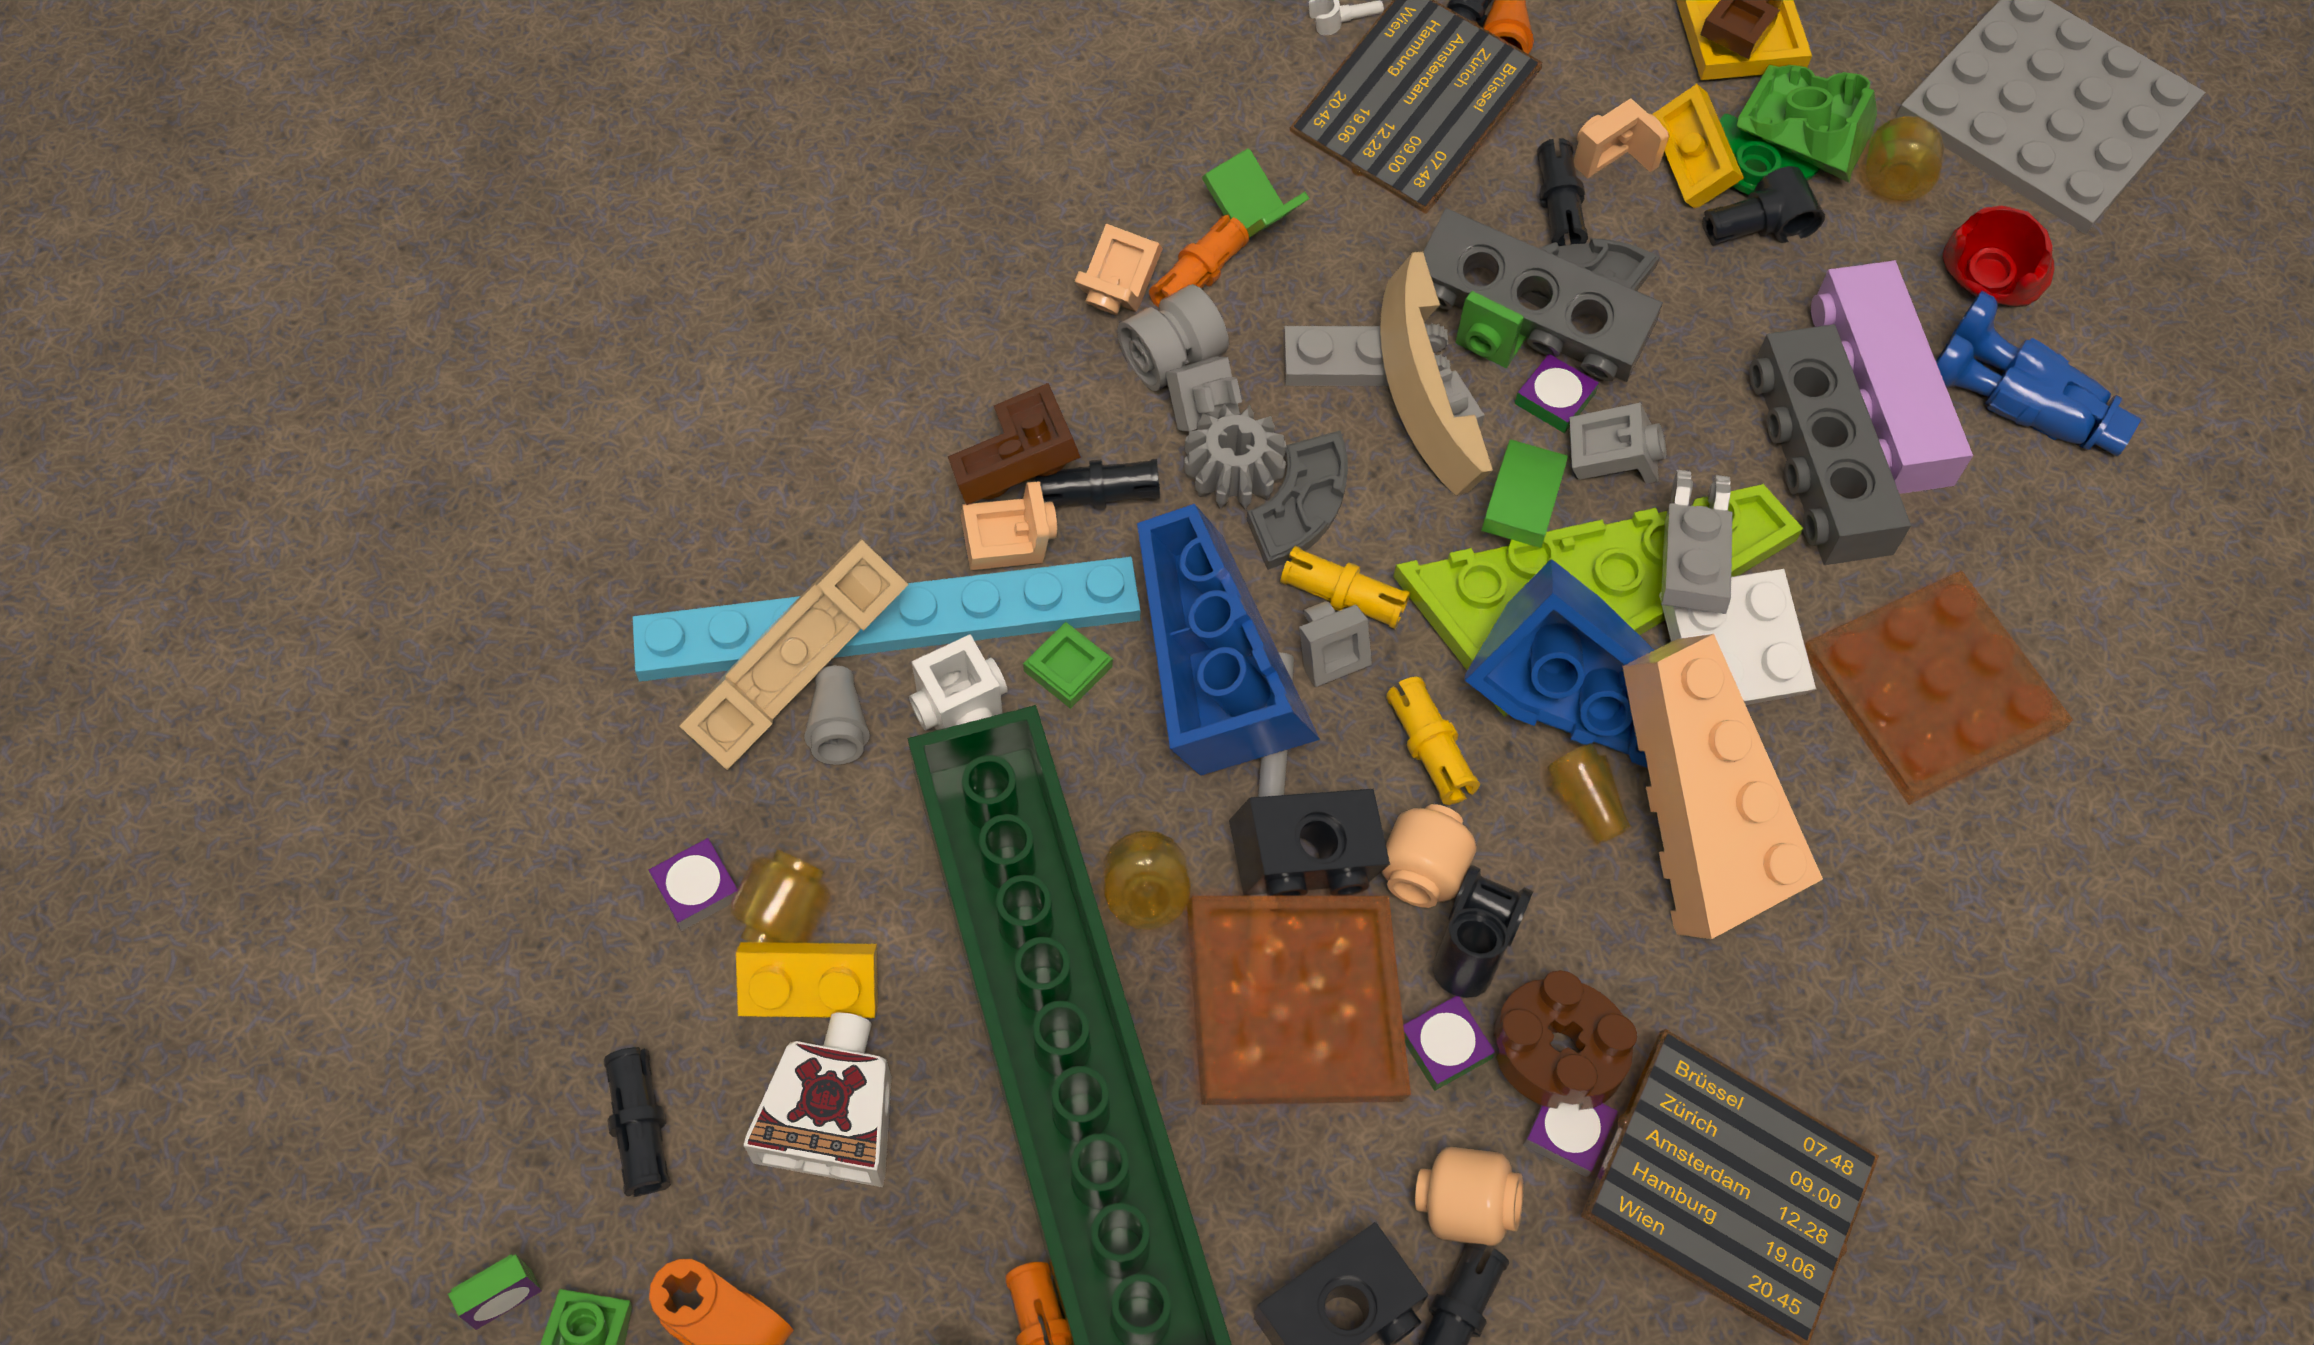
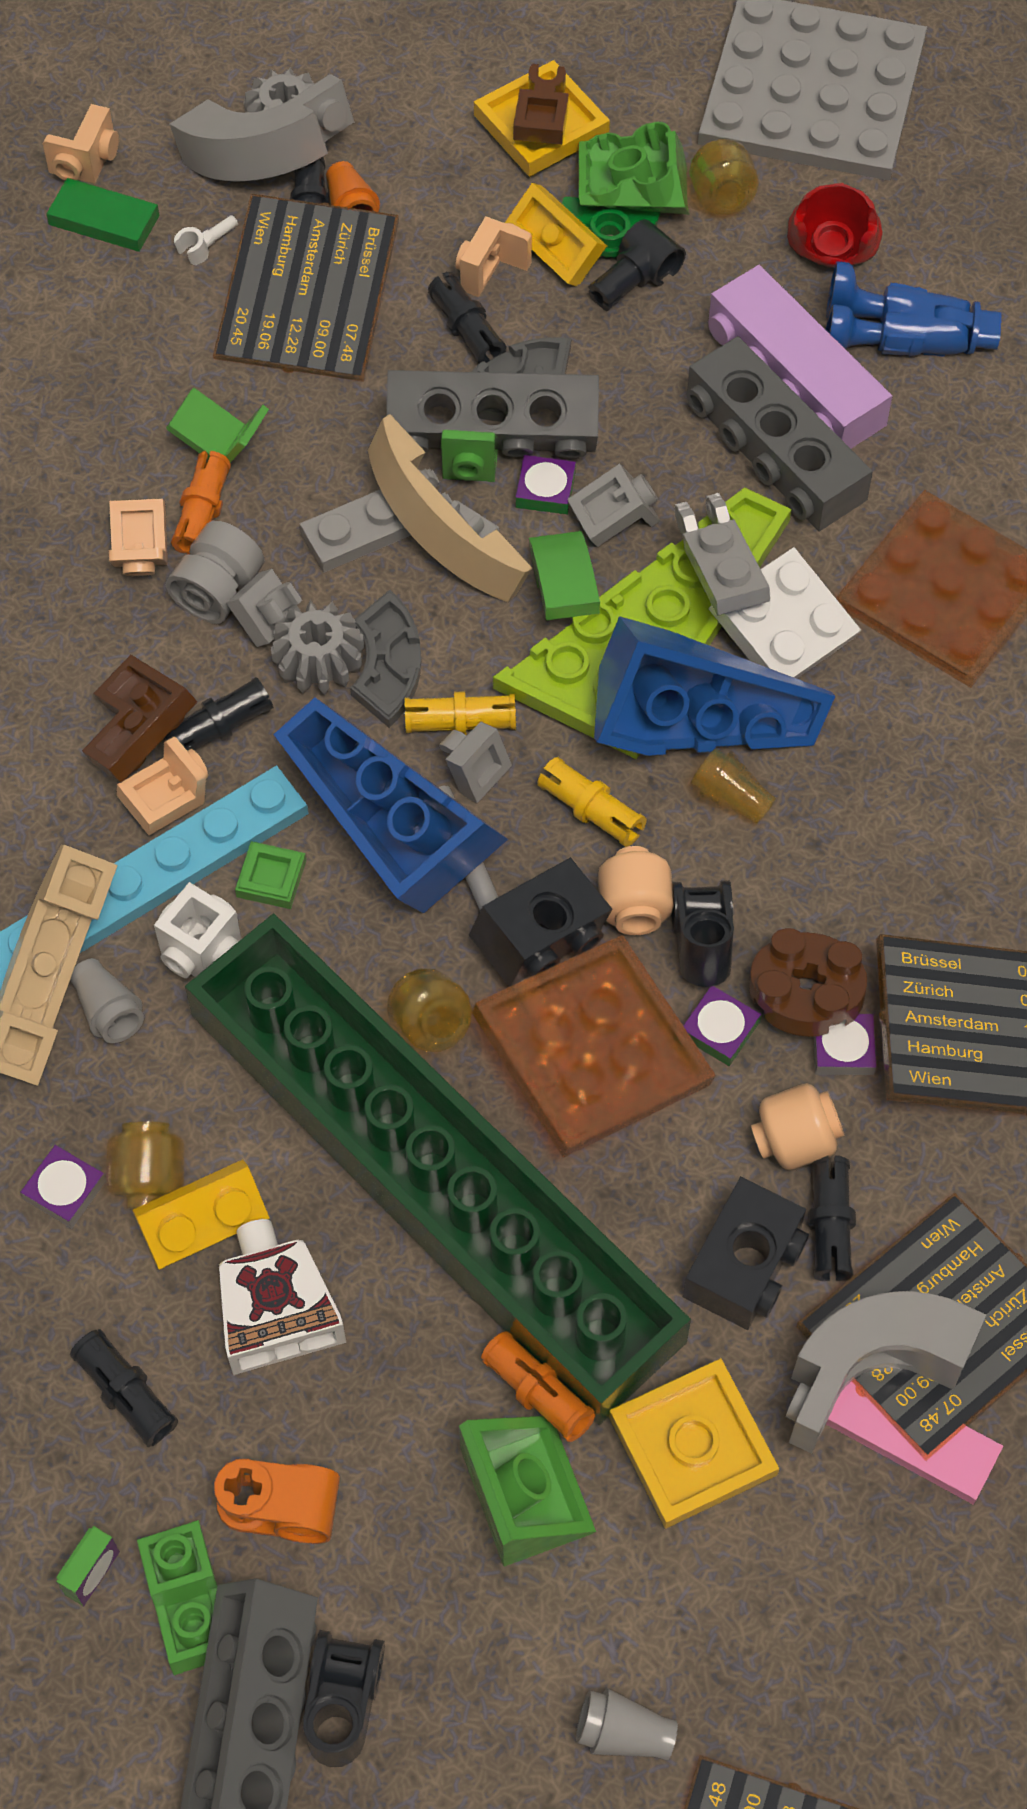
camera: 25 degrees left, 0 degrees up
(1714, 790) = (827, 739): light nougat wedge -> none

